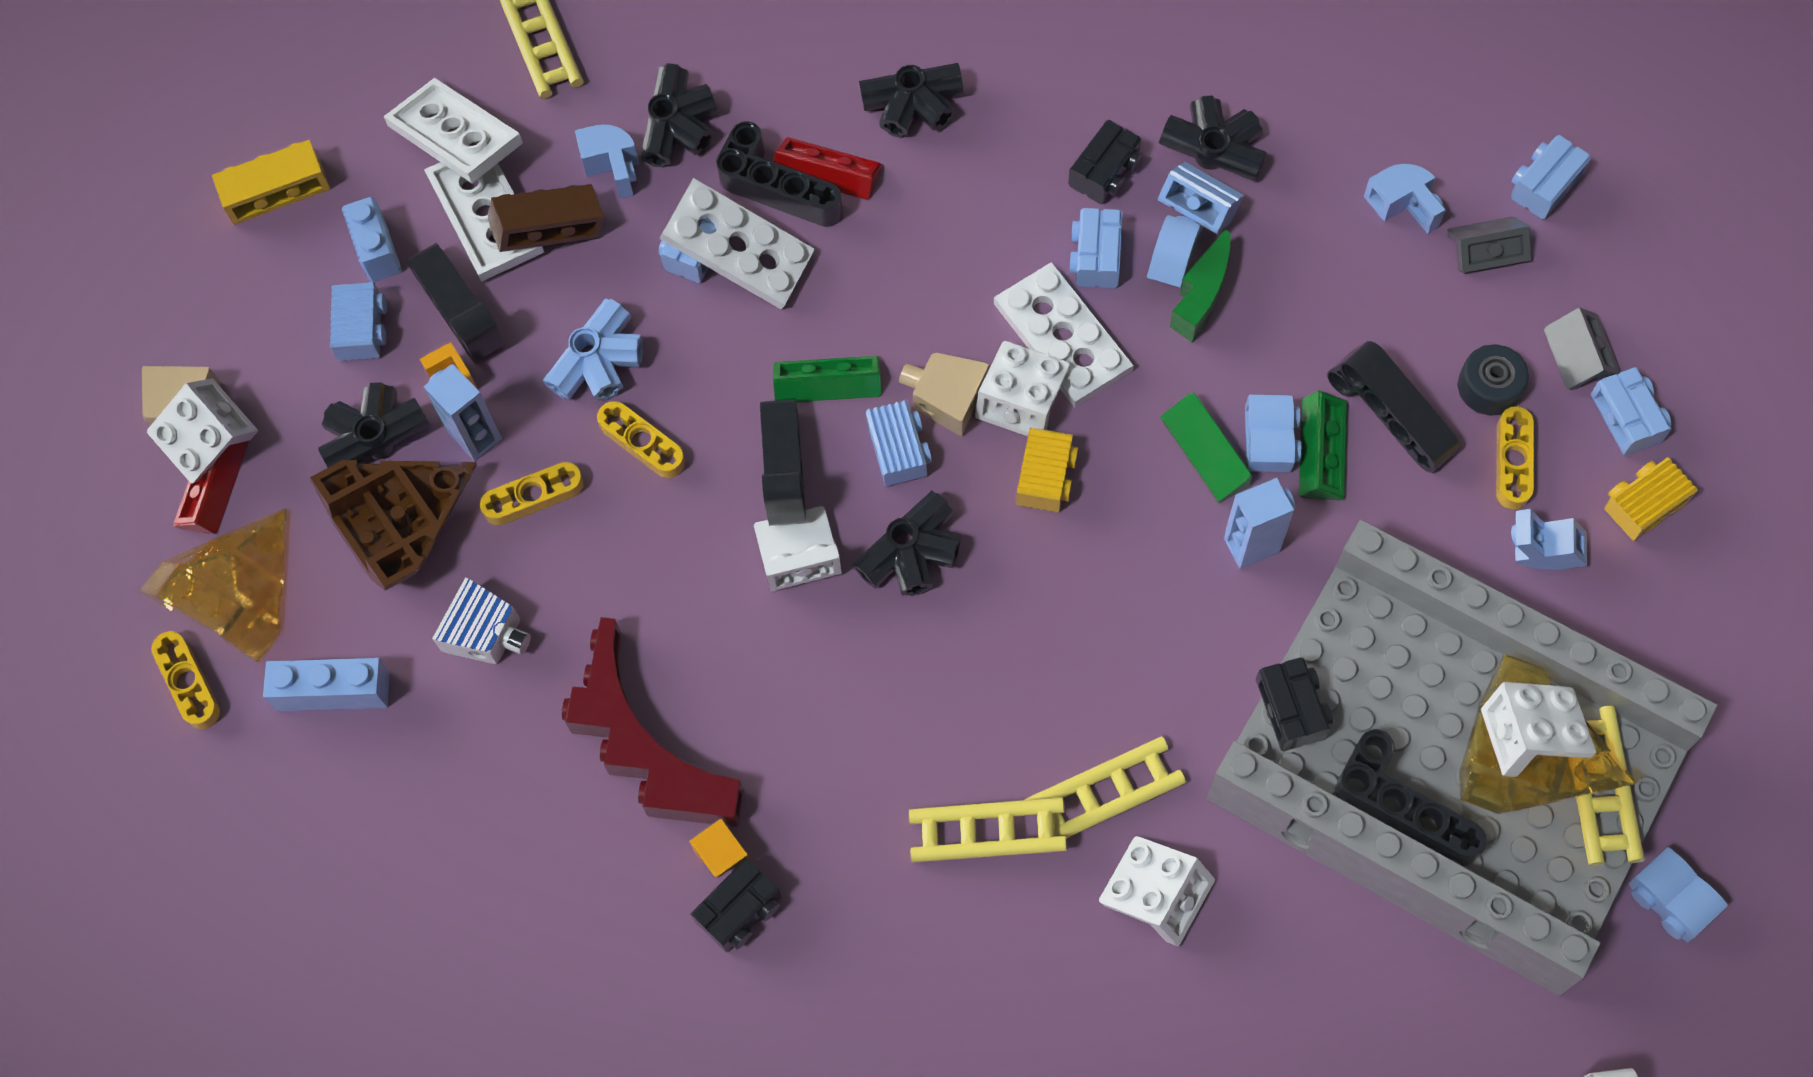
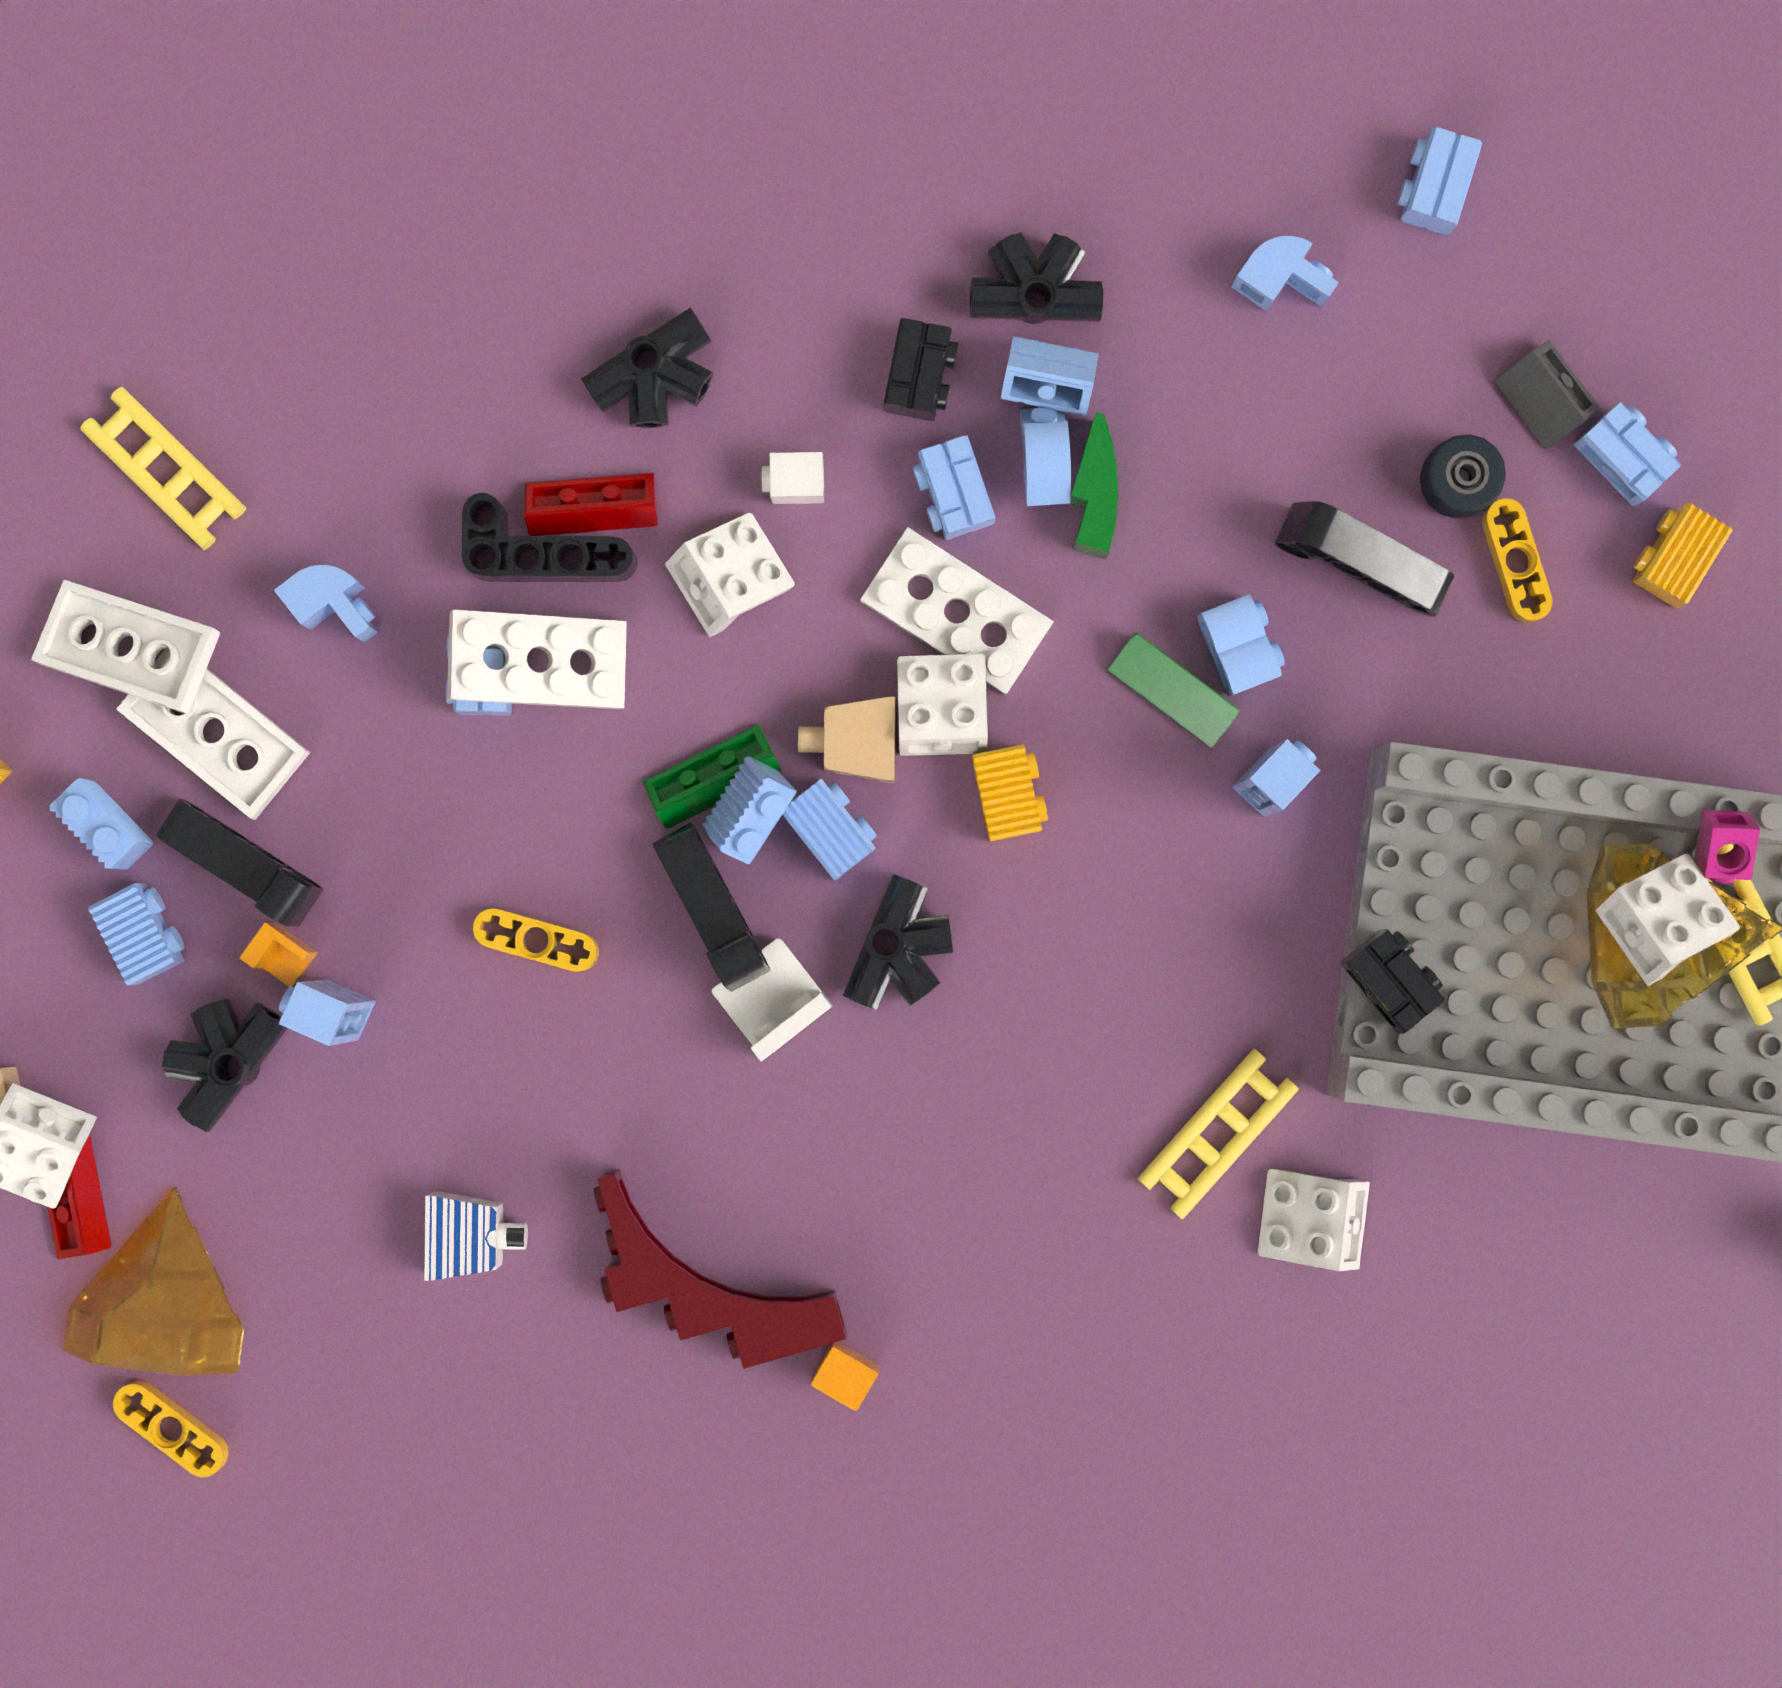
camera: 20 degrees left, 20 degrees up
(326, 684) = (331, 1374): light blue brick -> none
(391, 511) = (304, 1153): reddish brown wedge -> none
(517, 487) = (429, 1086): yellow beam -> none
(545, 217) = (295, 718): reddish brown brick -> none
(597, 365) = (449, 849): light blue piece -> none
(682, 123) = (395, 523): black piece -> none
(737, 906) = (888, 1425): black brick -> none
(843, 402) = (748, 810): none -> light blue brick
(903, 240) = (728, 572): none -> white bracket
(983, 199) = (794, 478): none -> white brick
(1004, 812) = (1141, 1241): light yellow bar -> none
(1323, 447) = (1301, 632): green slope -> none
(1412, 803) = (1557, 1045): black beam -> none
(1491, 244) = (1399, 295): dark grey panel -> none
(1548, 544) = (1591, 656): light blue brick -> none
(1607, 676) = (1724, 828): none -> dark pink brick

